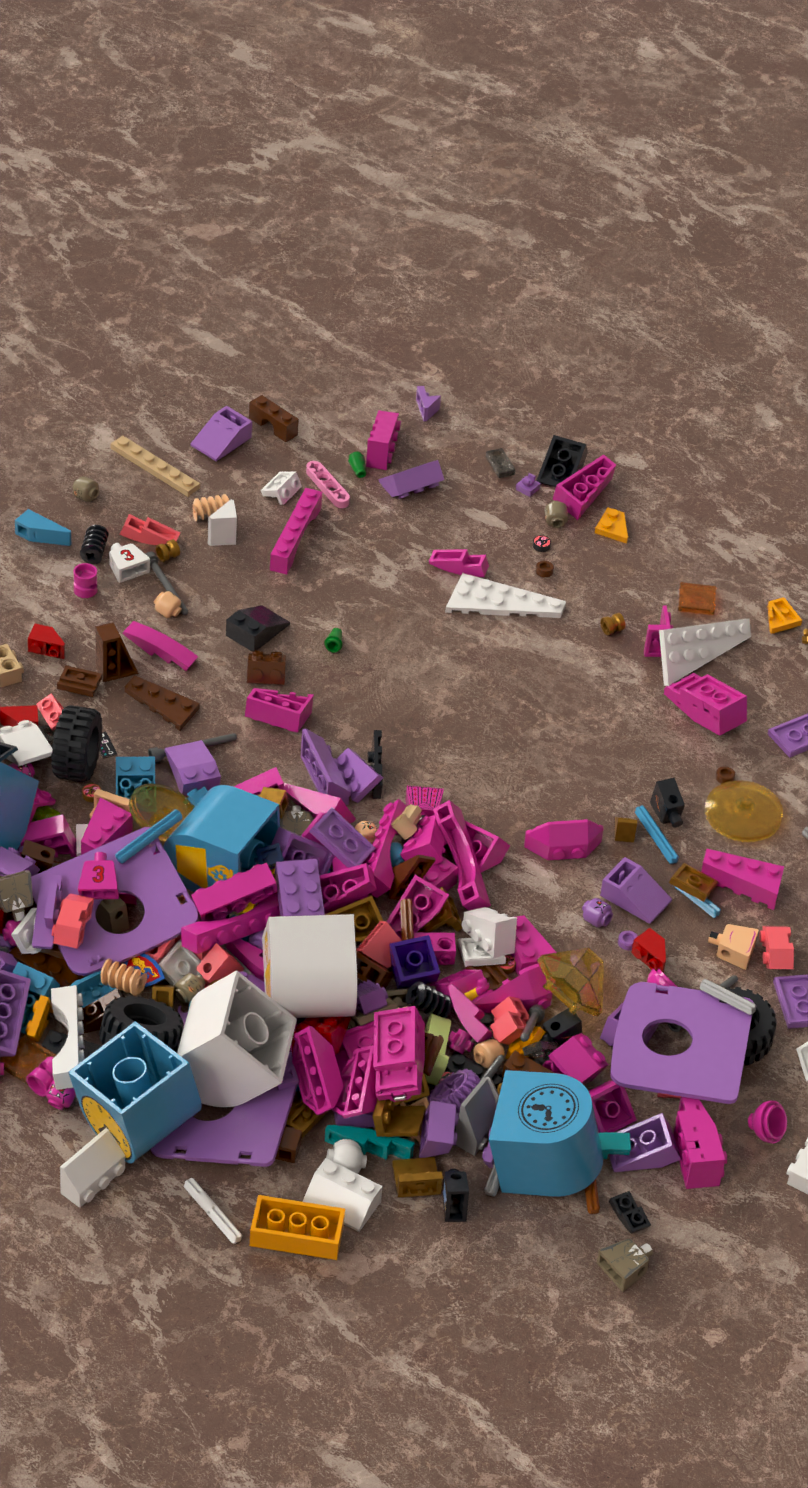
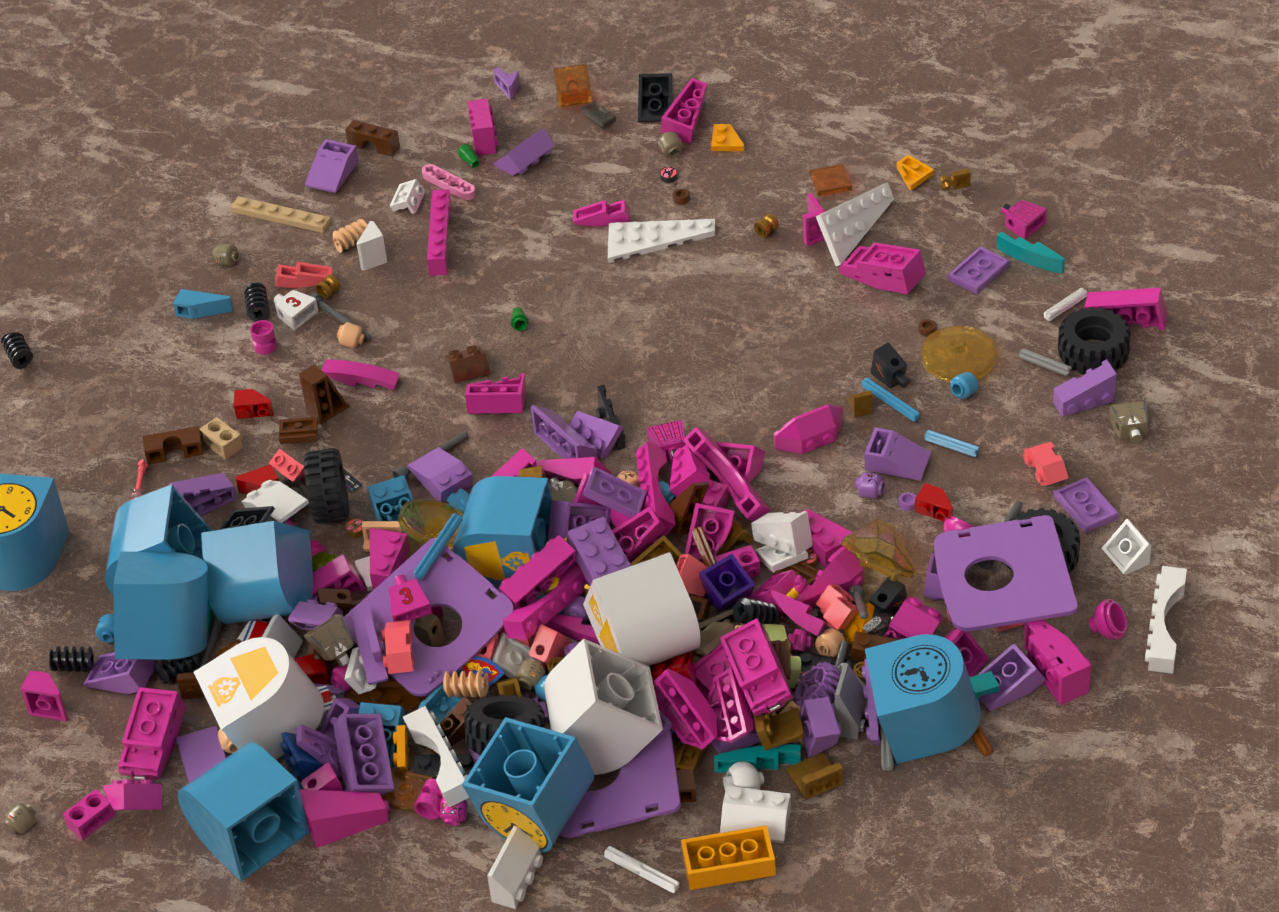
camera: 10 degrees left, 0 degrees up
(167, 703) = (389, 424): reddish brown wing -> none
(254, 626) = (439, 330): black slope -> none
(269, 855) = (553, 528): dark blue bracket -> none
(370, 997) = (709, 626): medium lavender brick -> none
(407, 821) = (664, 458): tan piece -> none
(455, 1185) = (857, 771): black torso -> none
(486, 426) = (572, 85): none -> clear orange slope
(528, 485) = (632, 127): medium lavender tile -> none
(624, 1262) = (1037, 788): dark tan torso -> none
(629, 1213) = (1022, 745): black slope -> none
(693, 882) = (944, 430): pearl gold tile -> none
(728, 997) = (1027, 520): light grey axle -> none
(734, 843) = (964, 385): none -> dark azure head
(735, 944) = (1006, 473): light nougat torso -> none
(744, 876) = (986, 410): dark pink wedge -> none

